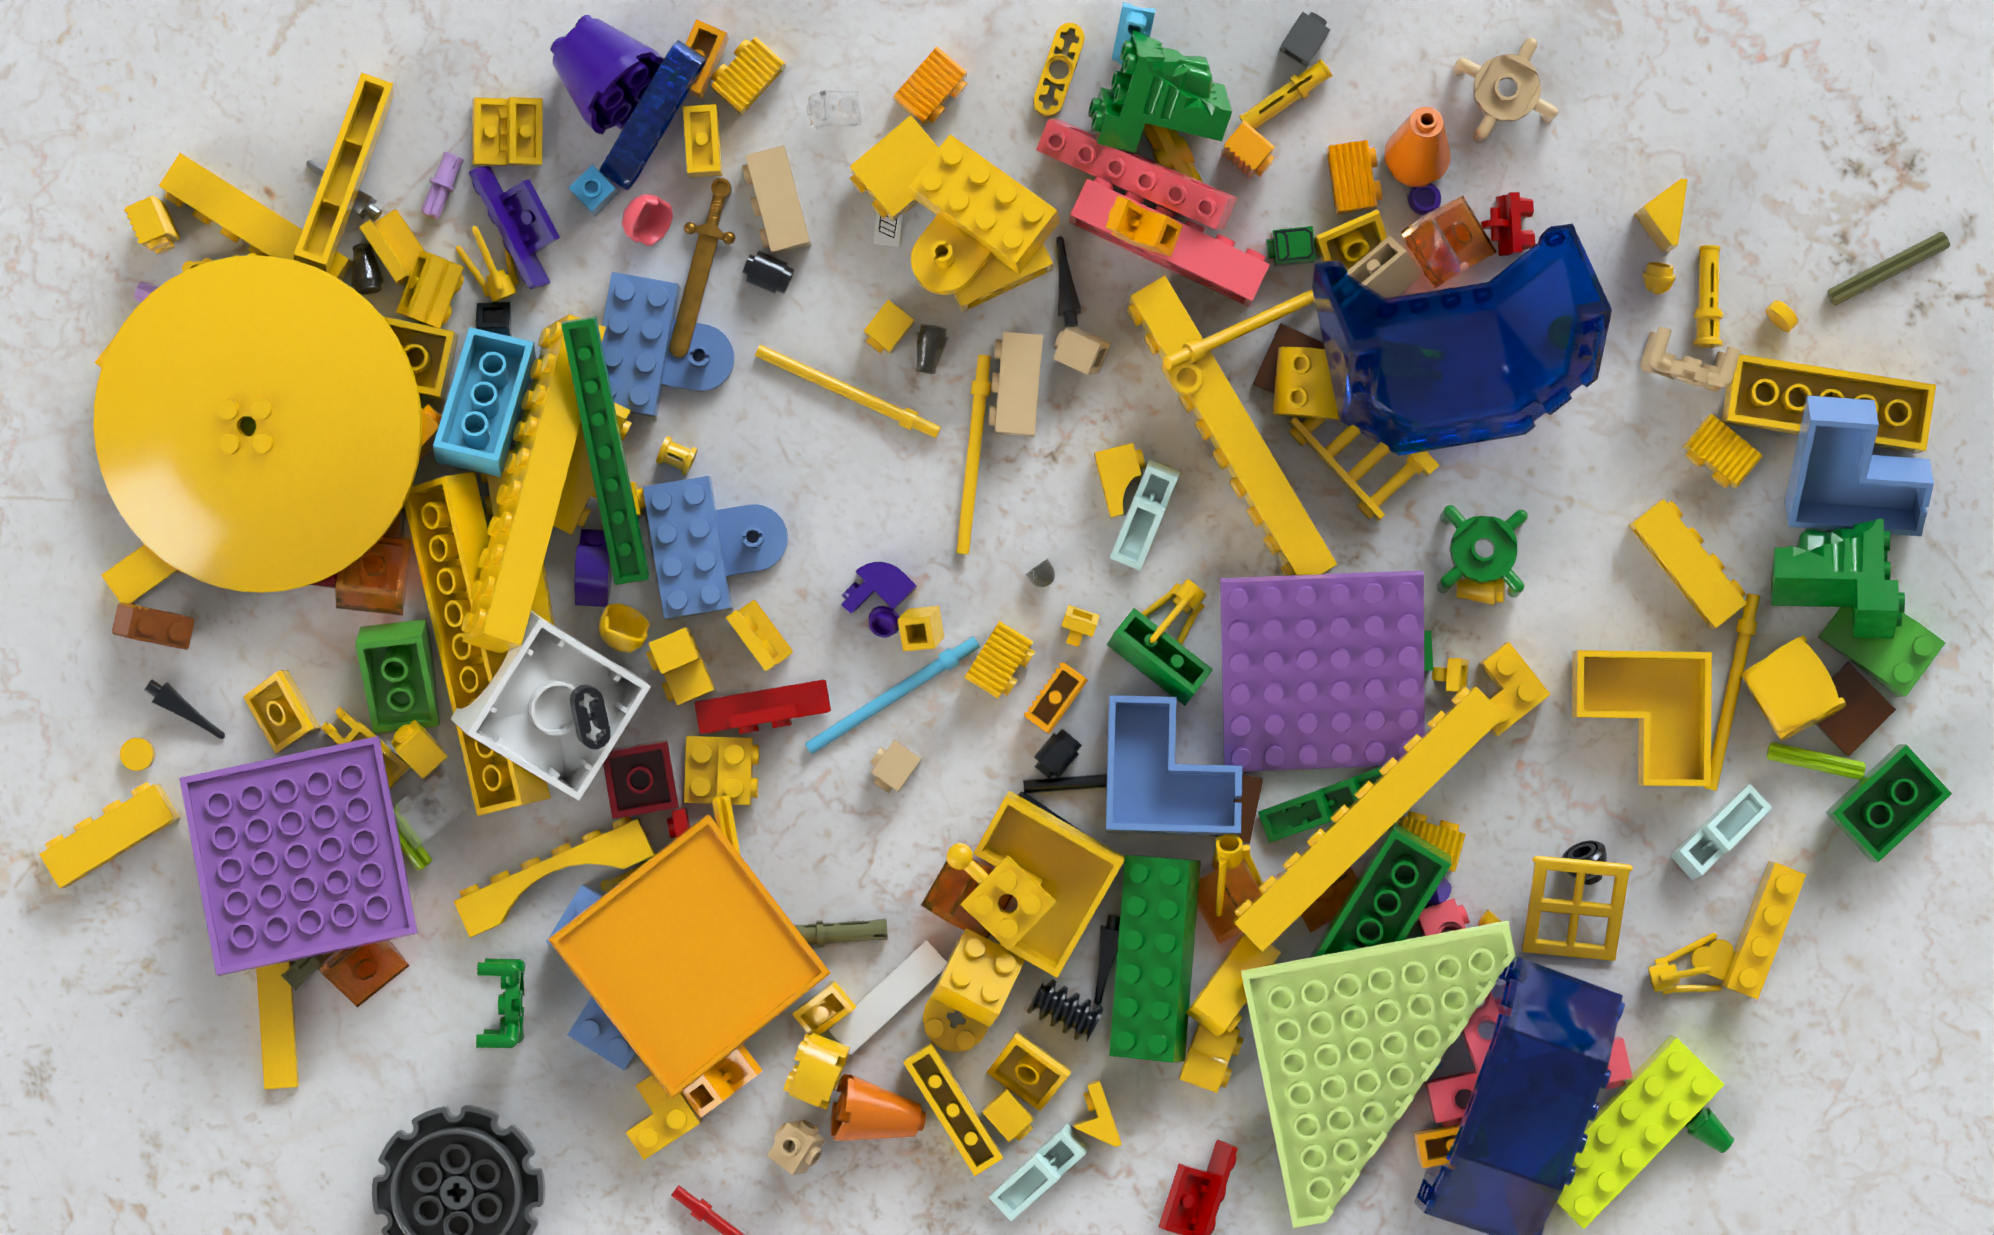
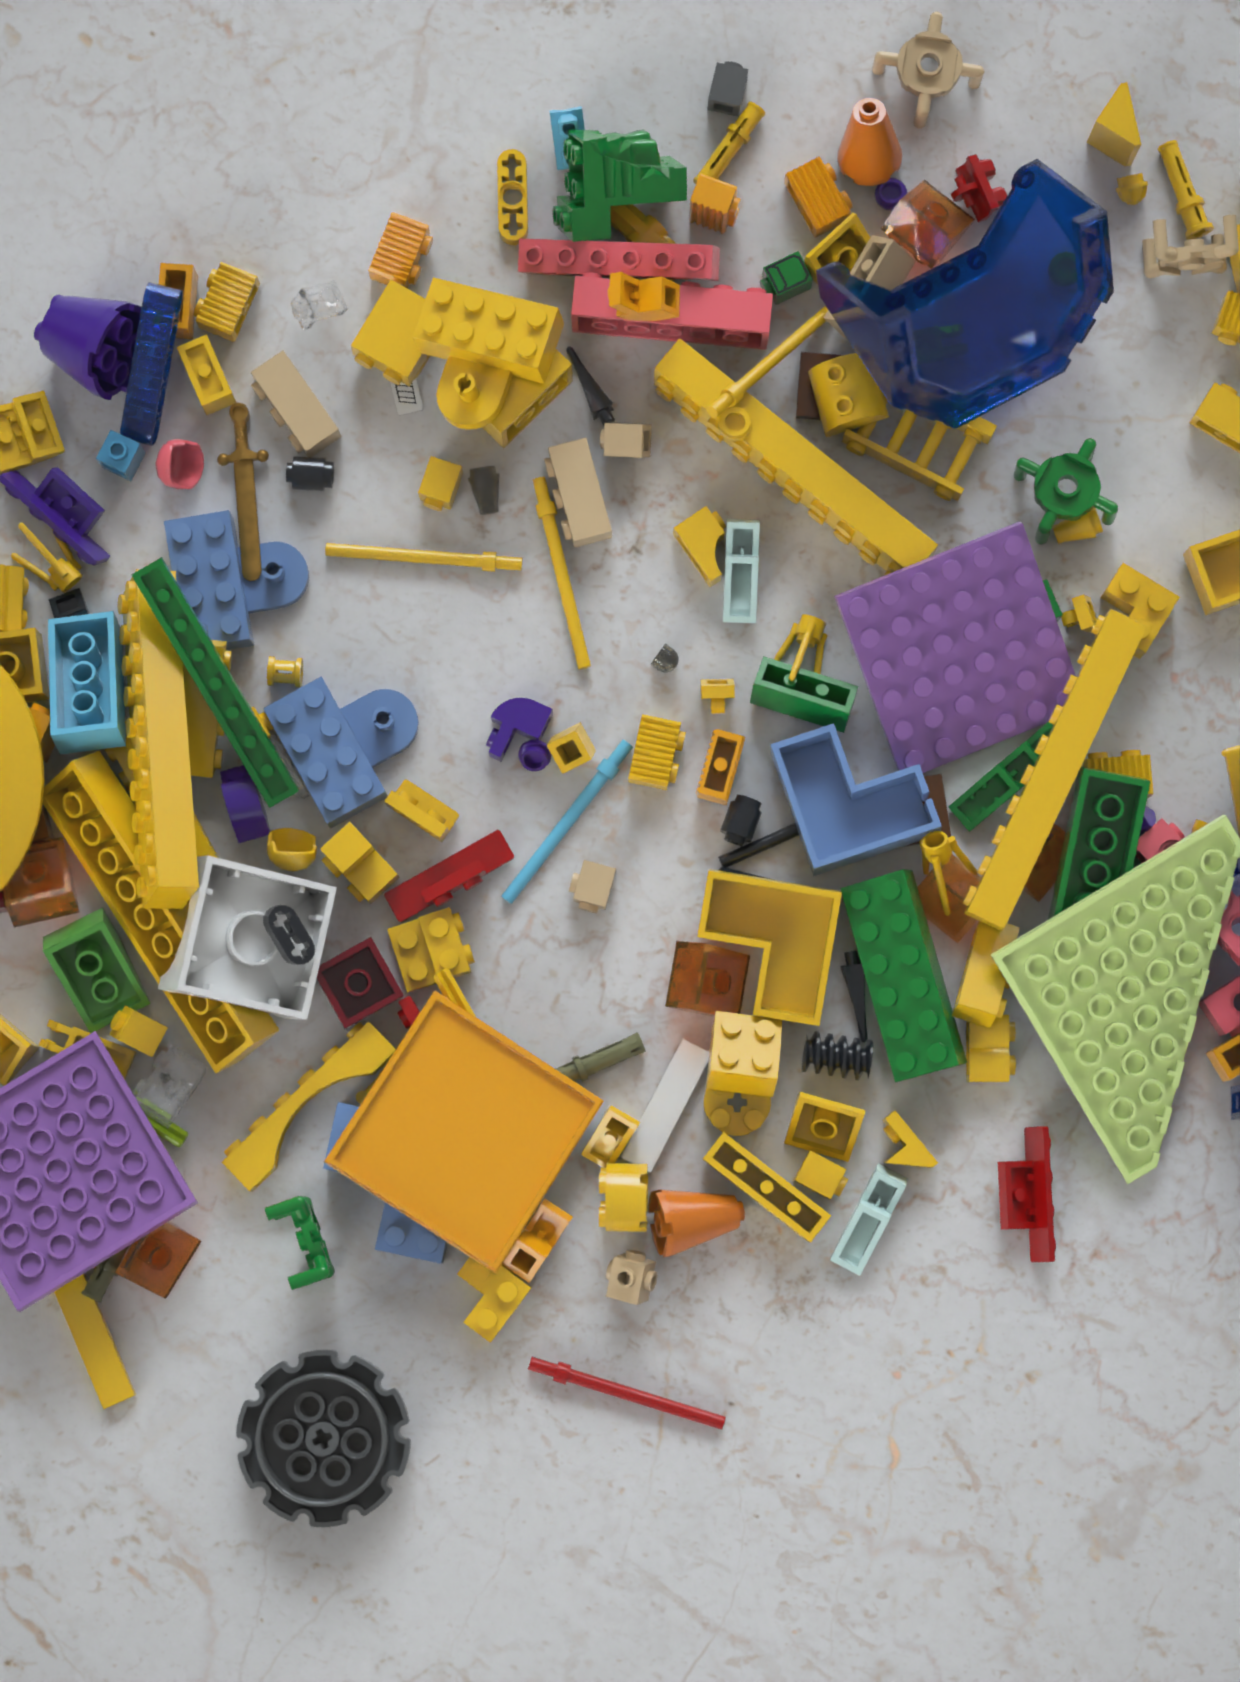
camera: 20 degrees left, 5 degrees down
(1003, 879) = (724, 976): yellow plate -> none

